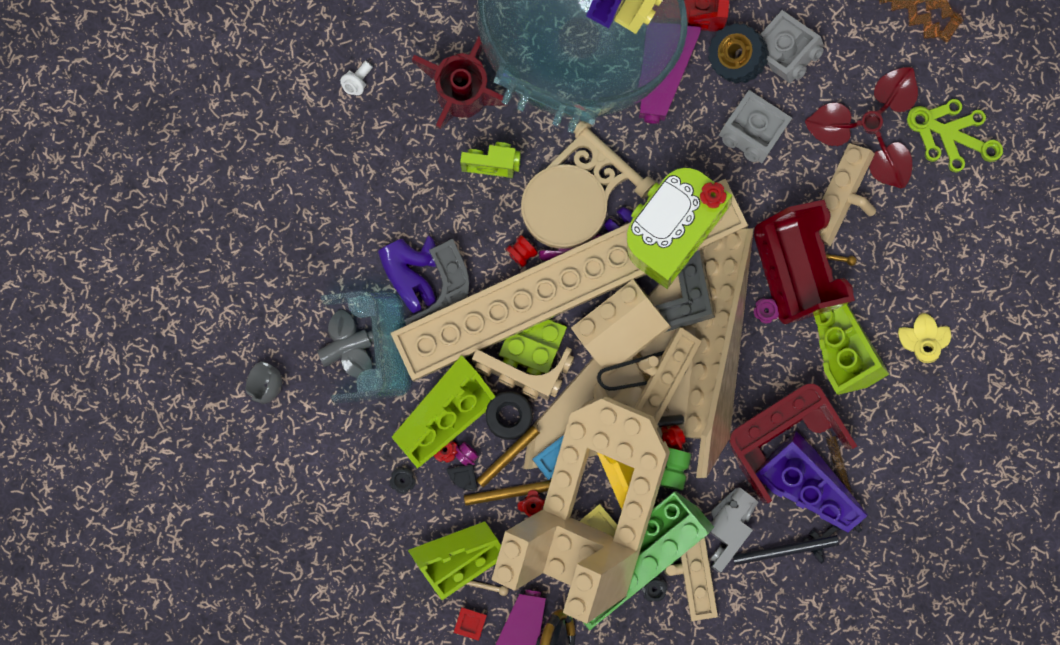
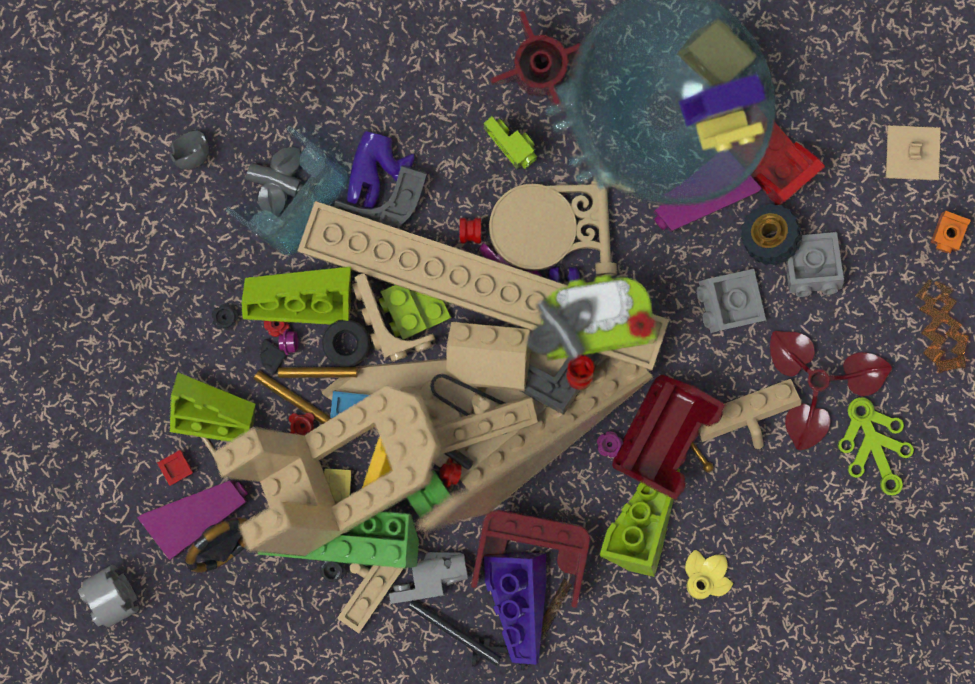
camera: 45 degrees right, 5 degrees up
(658, 250) = (561, 328): none -> dark grey plant
(696, 269) = (580, 366): none -> red wheel

